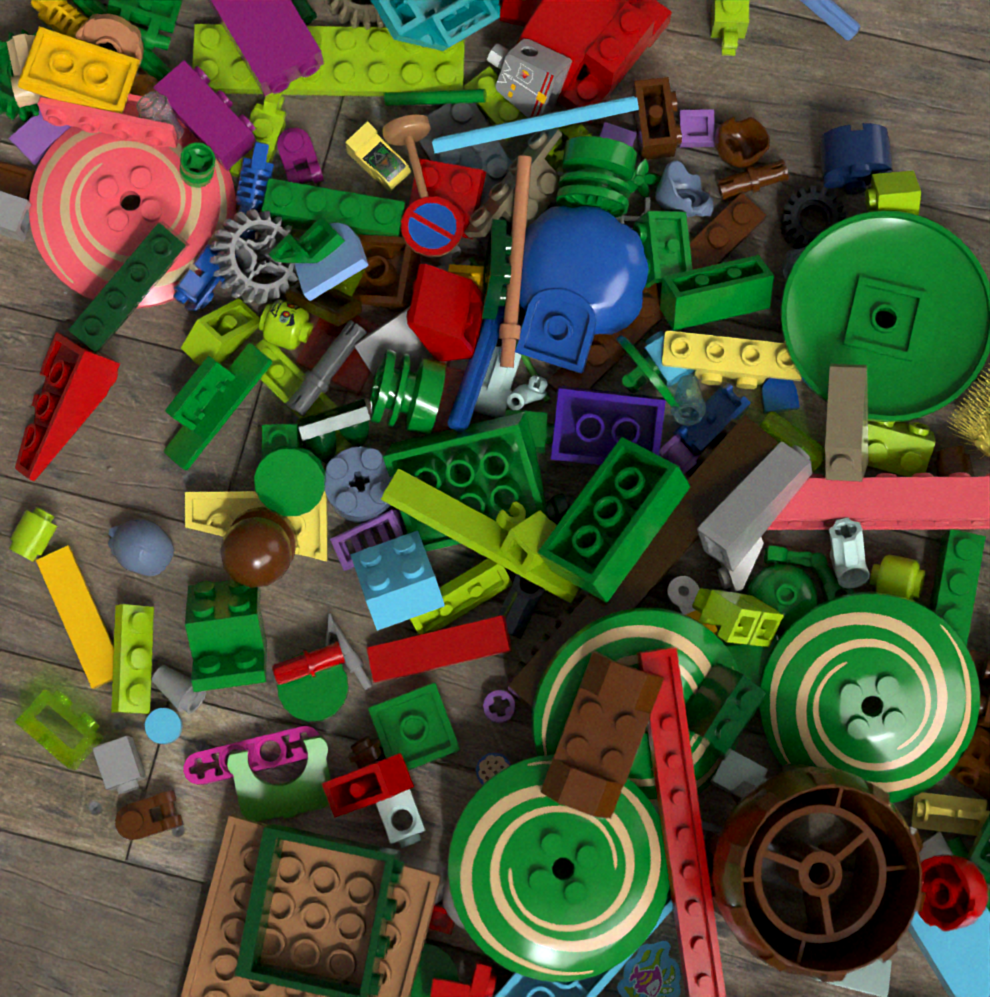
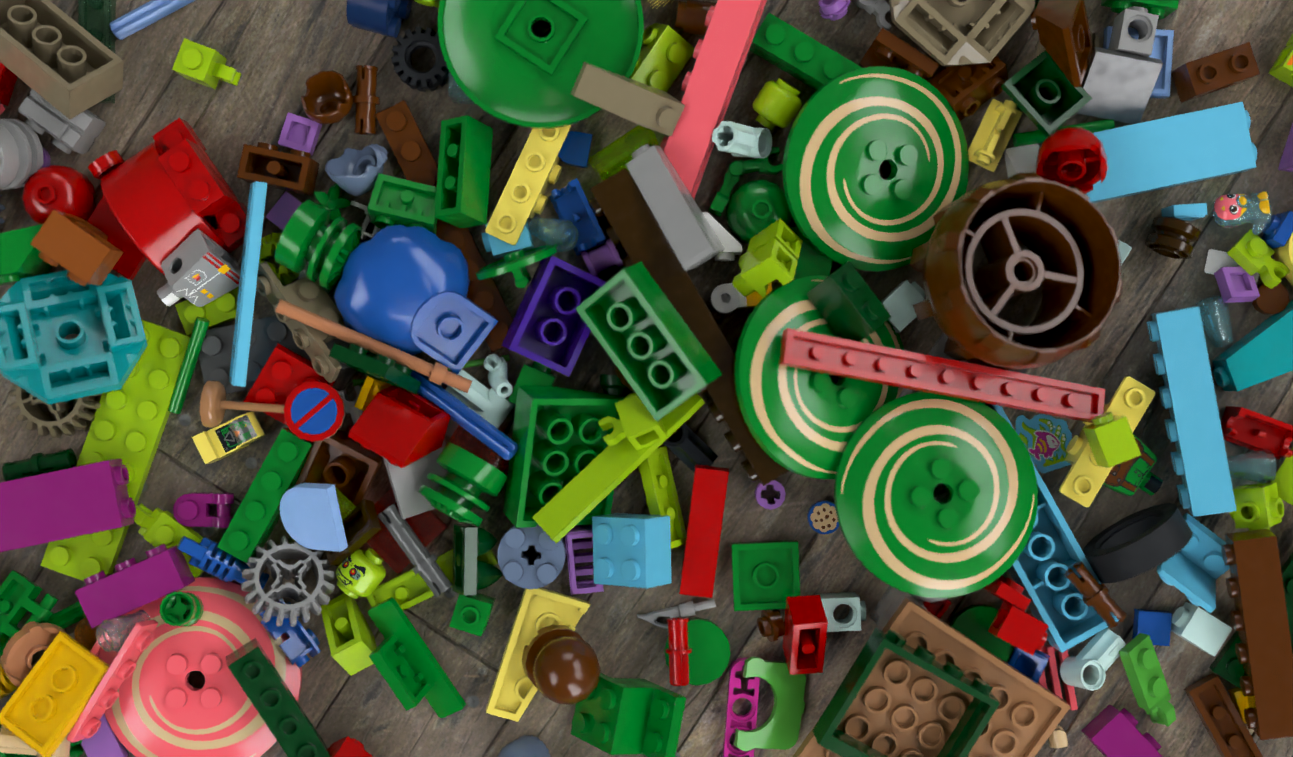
camera: 70 degrees left, 10 degrees up
(290, 481) = (509, 617): green tile -> none
(311, 247) = (297, 529): green slope -> none
(601, 736) = (844, 423): reddish brown piece -> none

